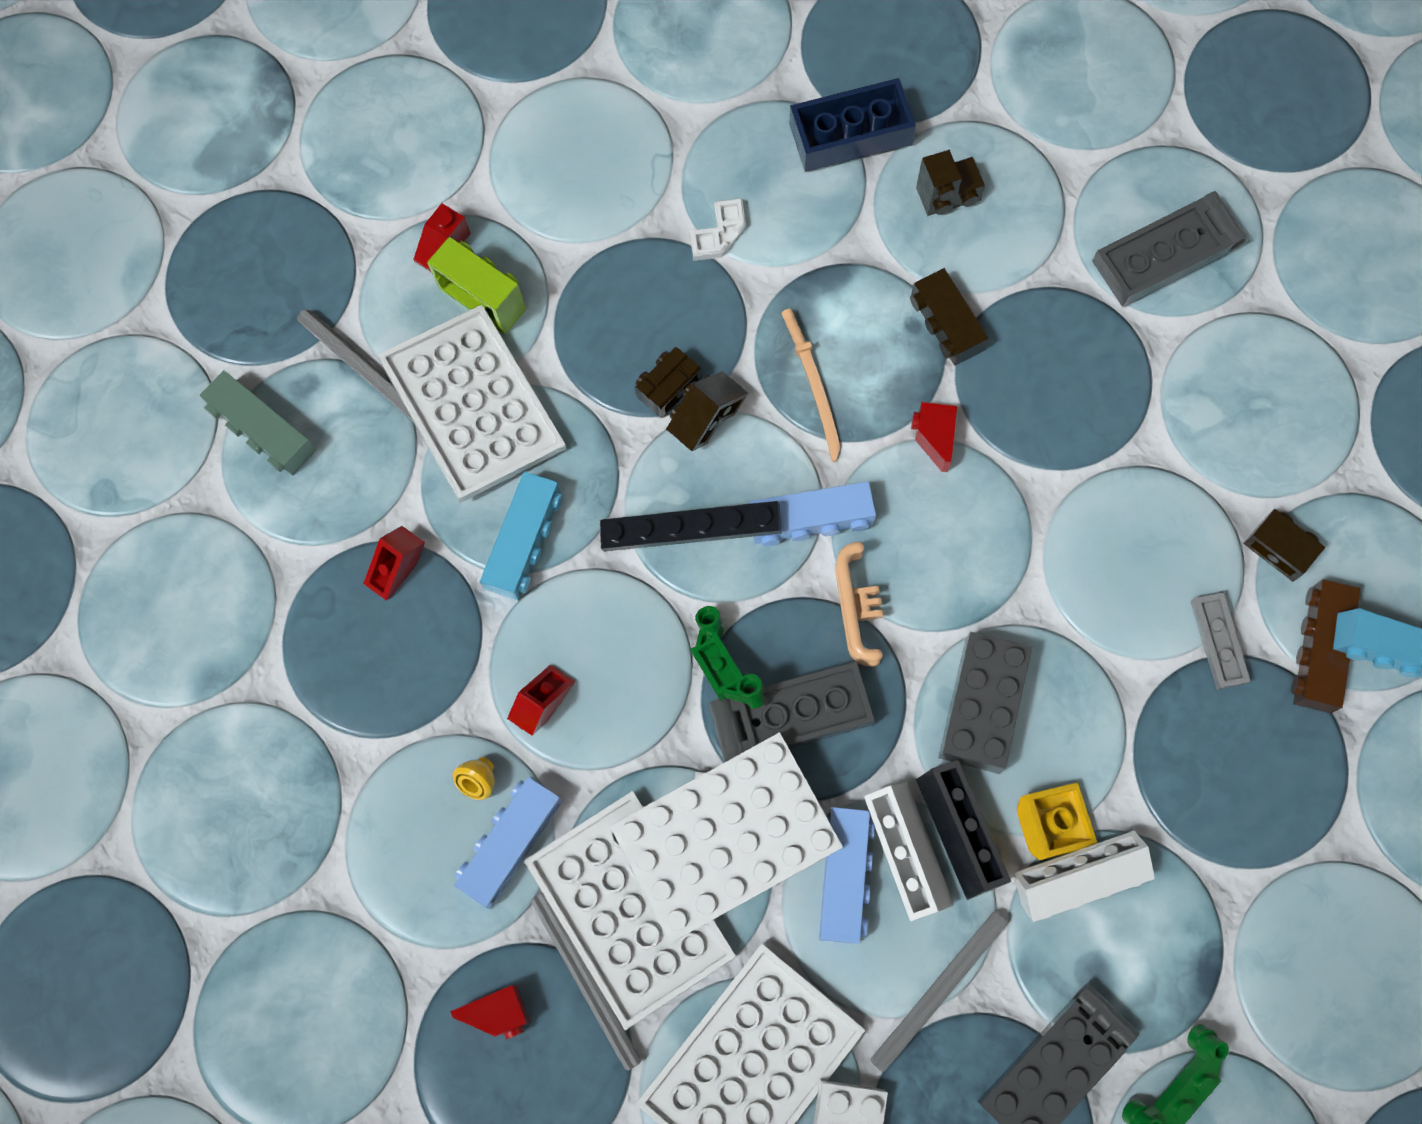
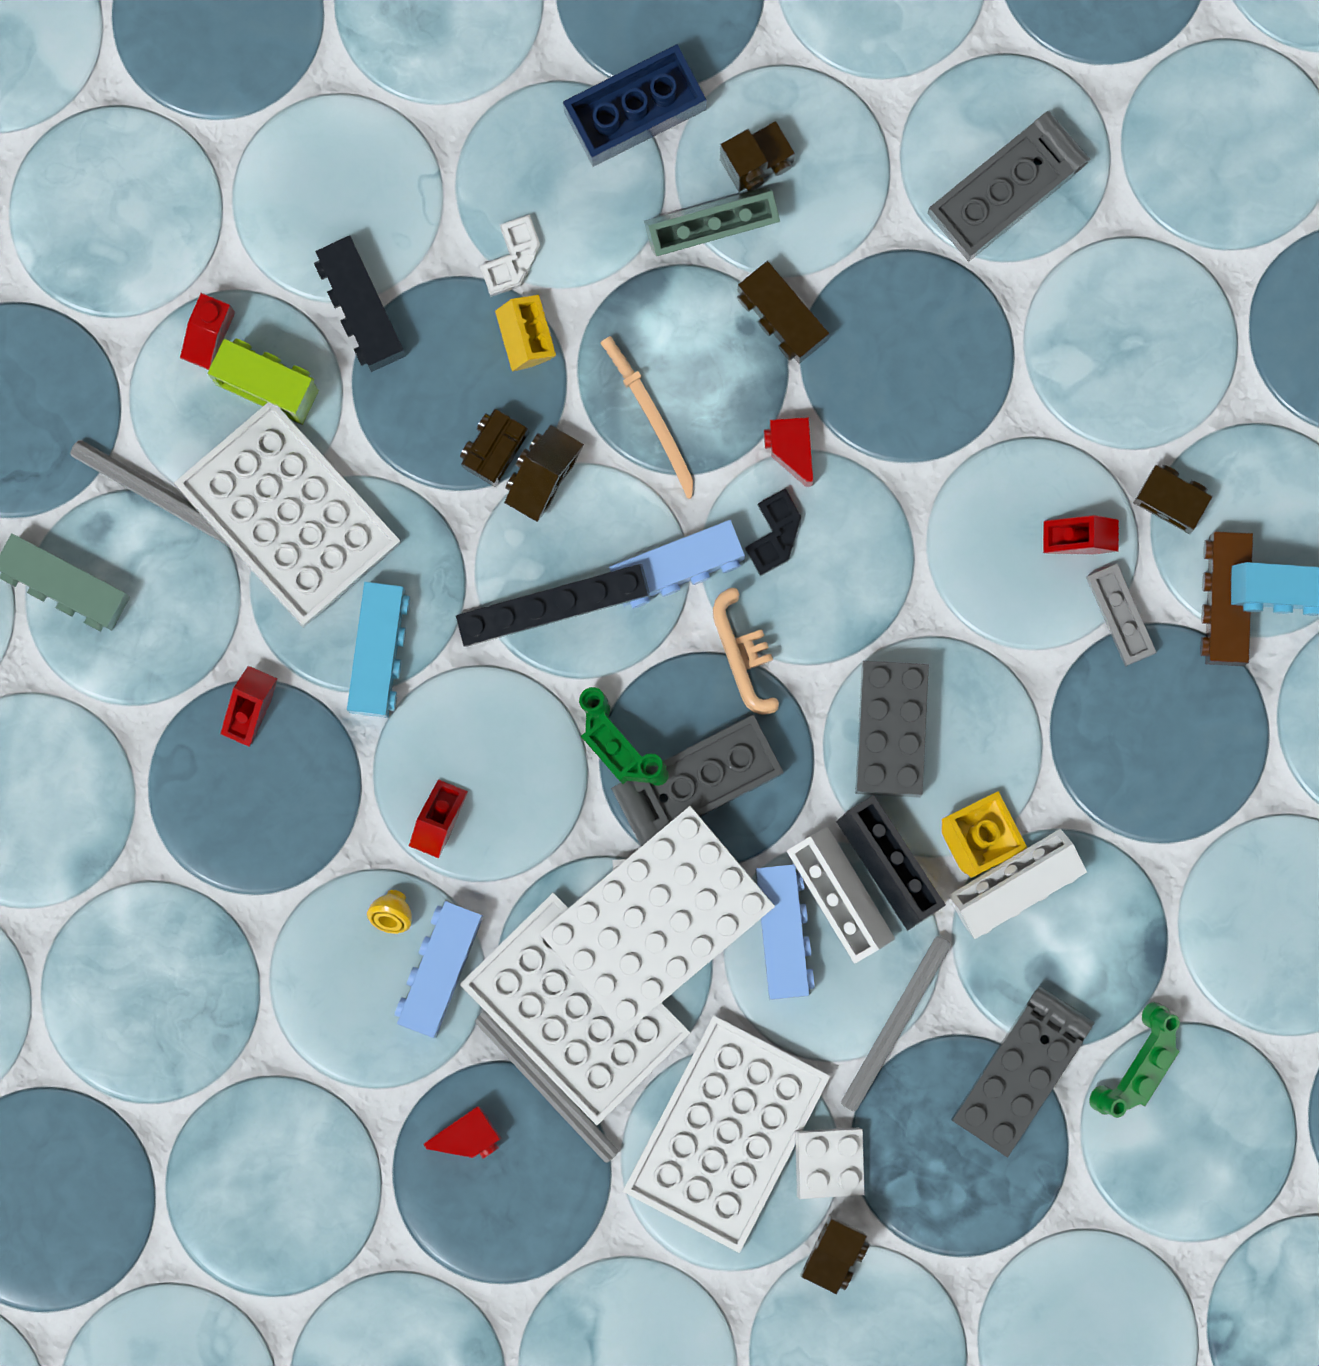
camera: 10 degrees left, 10 degrees up
(578, 242) = (360, 304): none -> black brick
(716, 291) = (525, 332): none -> yellow brick
(901, 228) = (712, 221): none -> sand green brick
(904, 518) = (775, 547): none -> black tile
(1193, 560) = (1081, 535): none -> red slope

